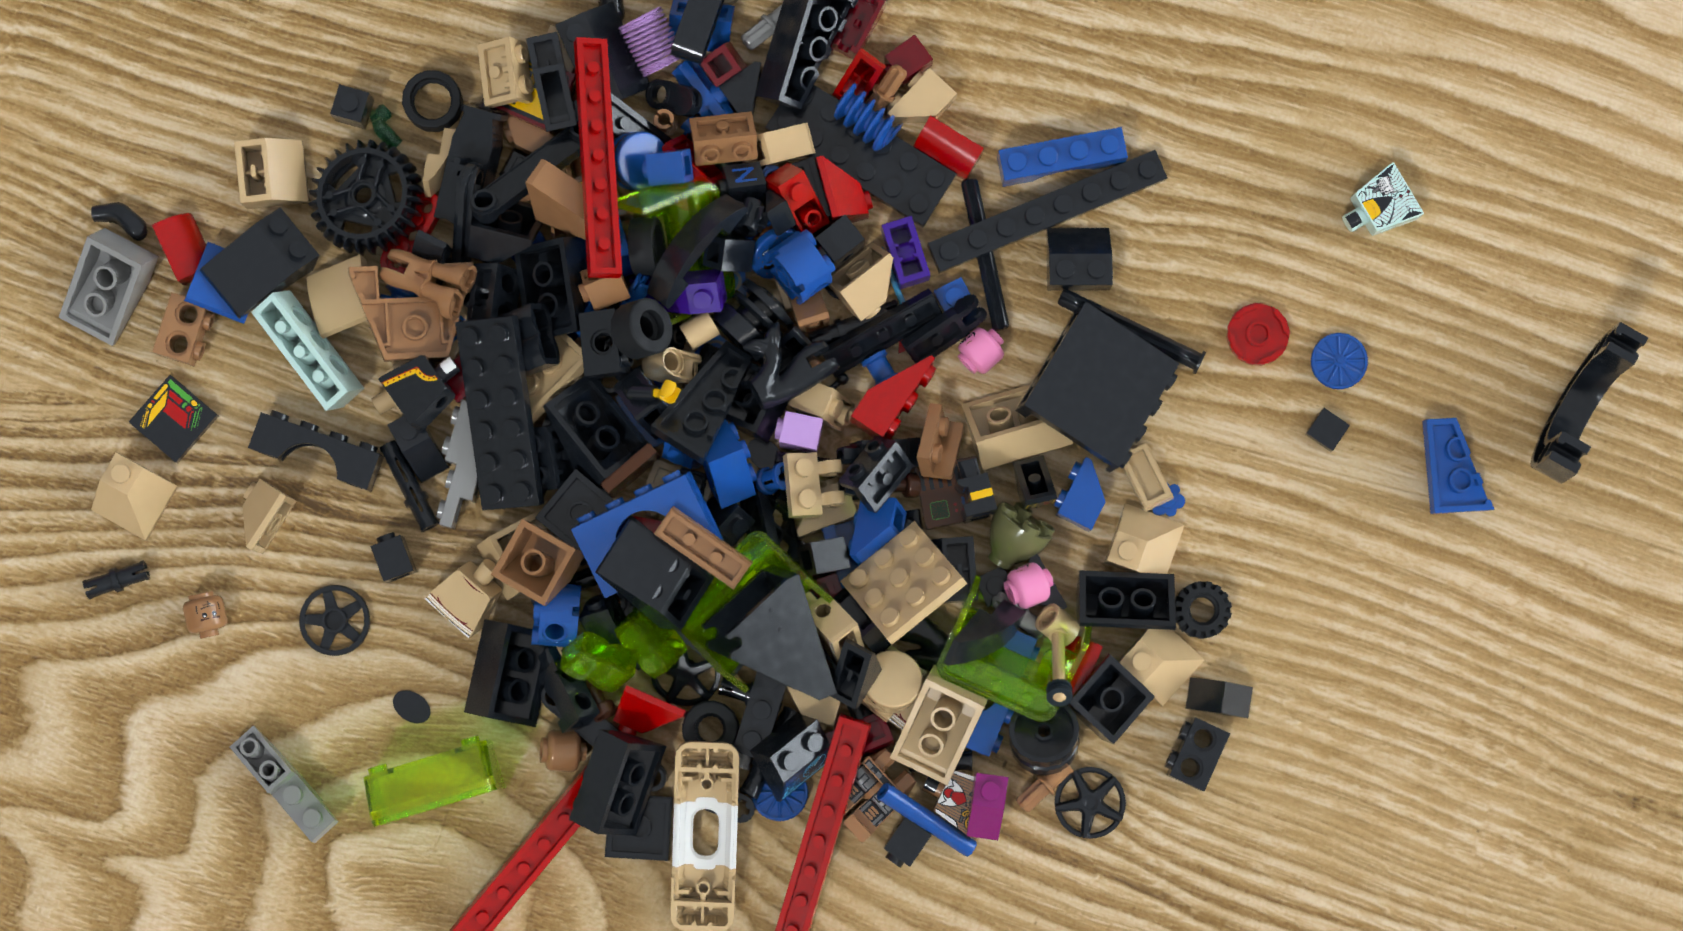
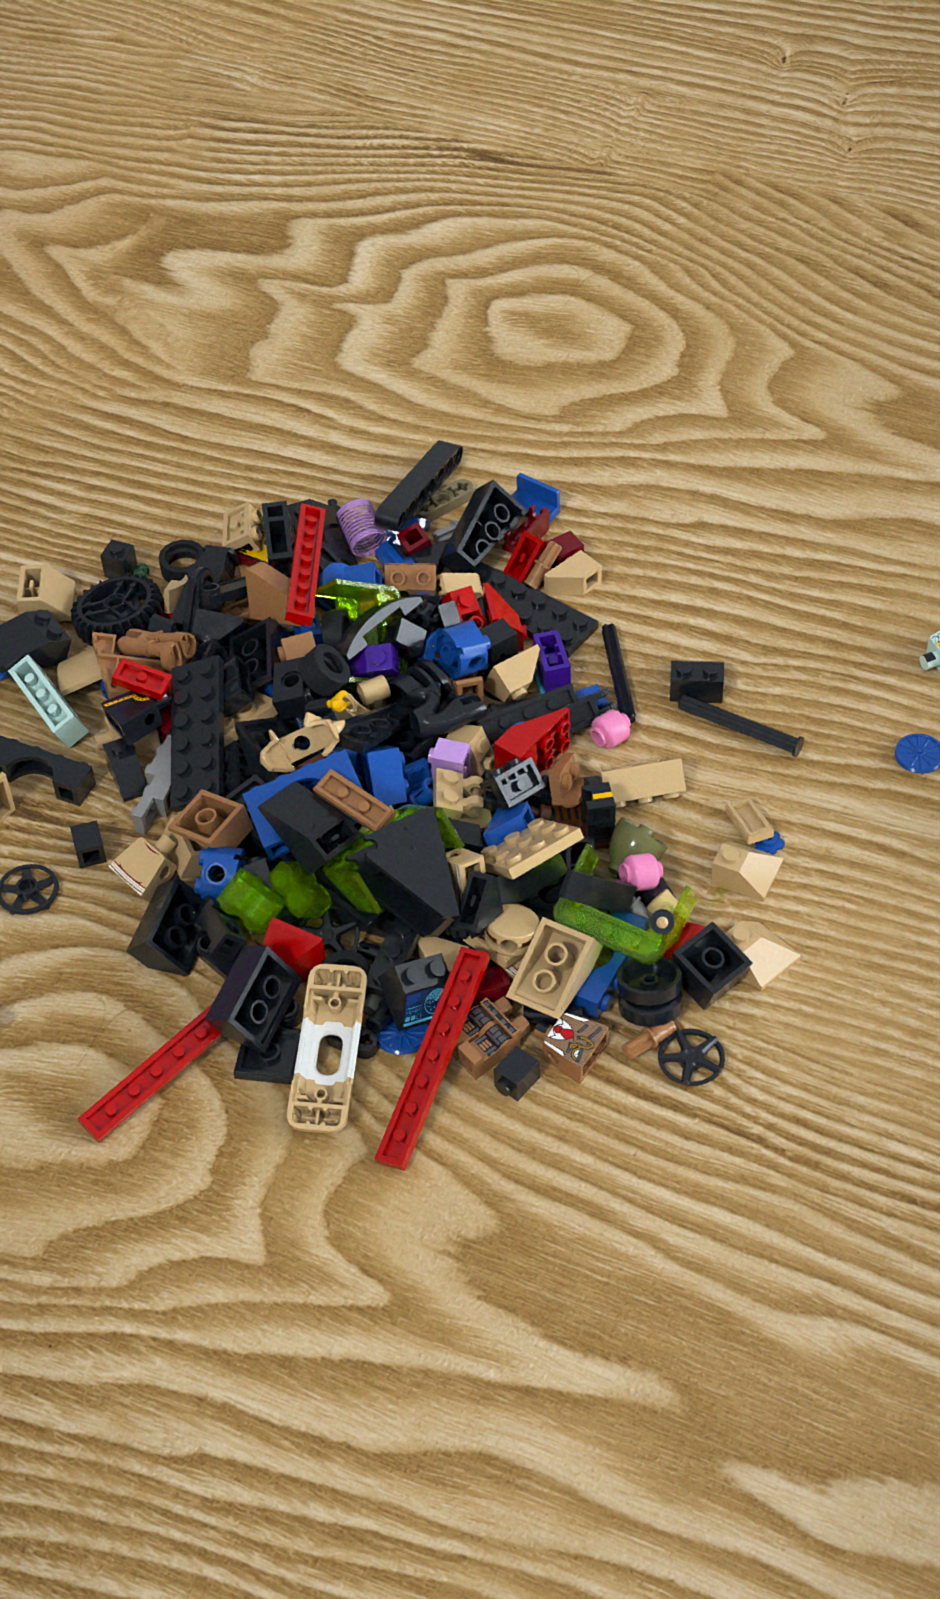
camera: 10 degrees right, 35 degrees down
(411, 706) = (81, 956): black sticker -> none
(424, 356) = (142, 679): none -> red panel
(426, 518) = (115, 804): black pin -> none
(432, 781) = (84, 981): clear neon green windscreen -> none
(562, 751) = (205, 985): medium nougat head -> none
(606, 457) = (281, 753): none -> tan piece
(679, 98) = (377, 556): black piece -> none
(762, 446) = (416, 773): none -> blue tile
(866, 119) = (527, 574): blue piece -> none
(926, 819) = (537, 1049): blue piece -> none
(948, 147) = (594, 601): red brick -> none
(987, 806) = (592, 1031): magenta slope -> none
(1034, 482) = (652, 812): black slope -> none
(1047, 211) = (670, 644): black plate -> none
(1049, 157) = (655, 612): blue arch -> none
(1084, 497) = (692, 832): blue slope -> none
(1099, 386) = (711, 745): black panel -> none
(1126, 600) = (731, 896): black slope -> none
(1205, 758) = (797, 1021): black brick -> none
(1219, 697) = (815, 981): black slope -> none
(1221, 609) = (798, 928): black tyre -> none
(1257, 334) = (848, 734): red tile -> none
(1327, 429) = (910, 798): black tile -> none

